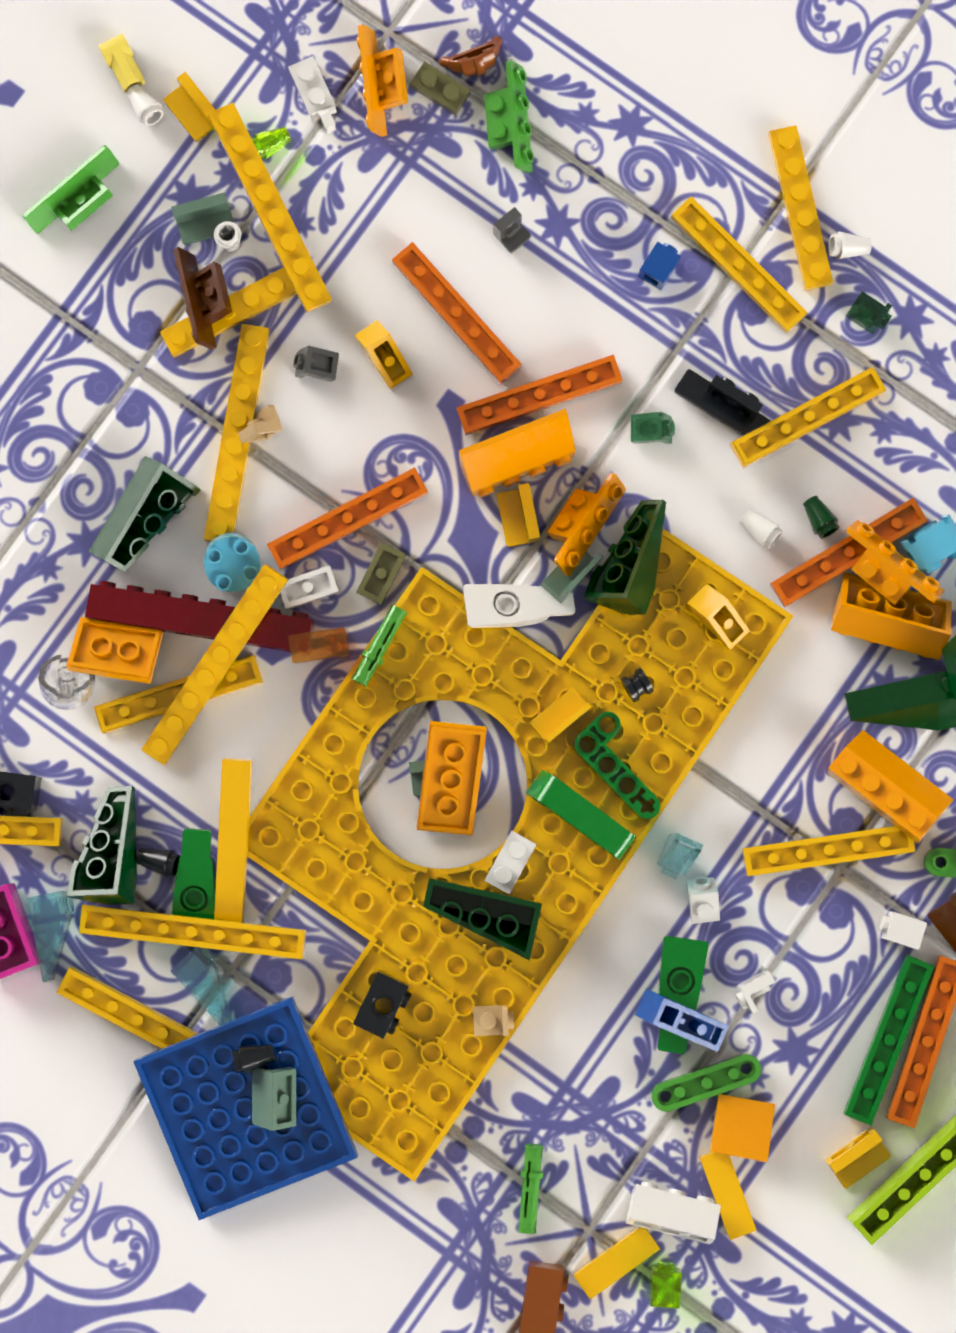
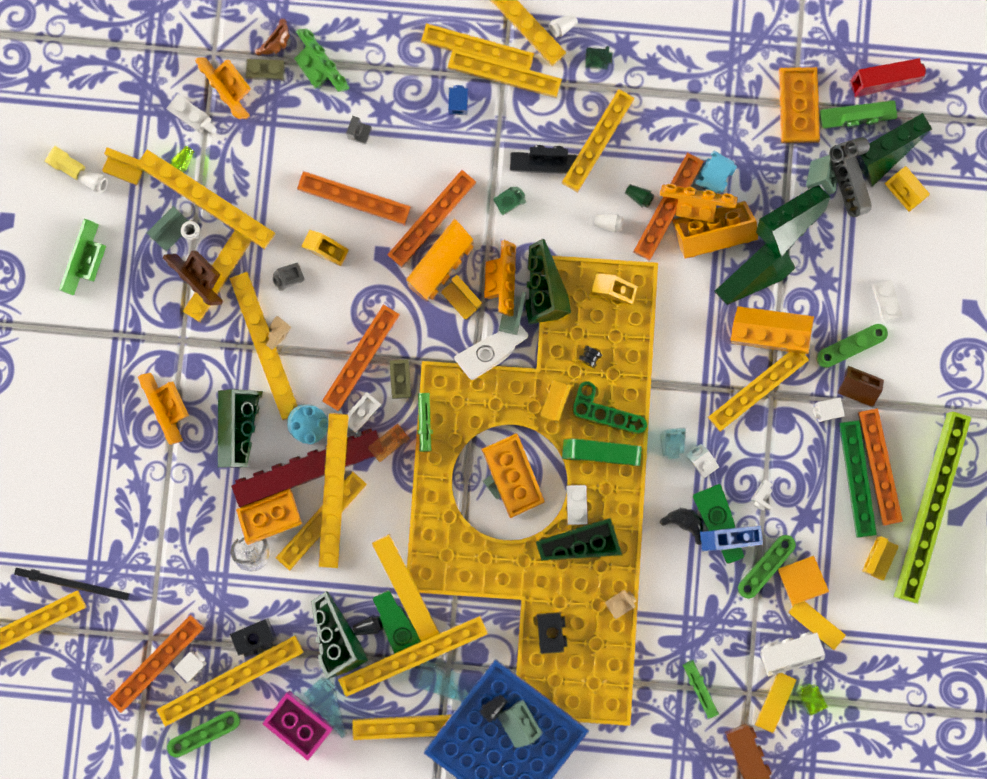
camera: 30 degrees left, 0 degrees up
(70, 437) = (166, 406): none -> light orange bracket
(638, 964) = (686, 520): none -> black piece
(696, 183) = (451, 40): none -> yellow tile

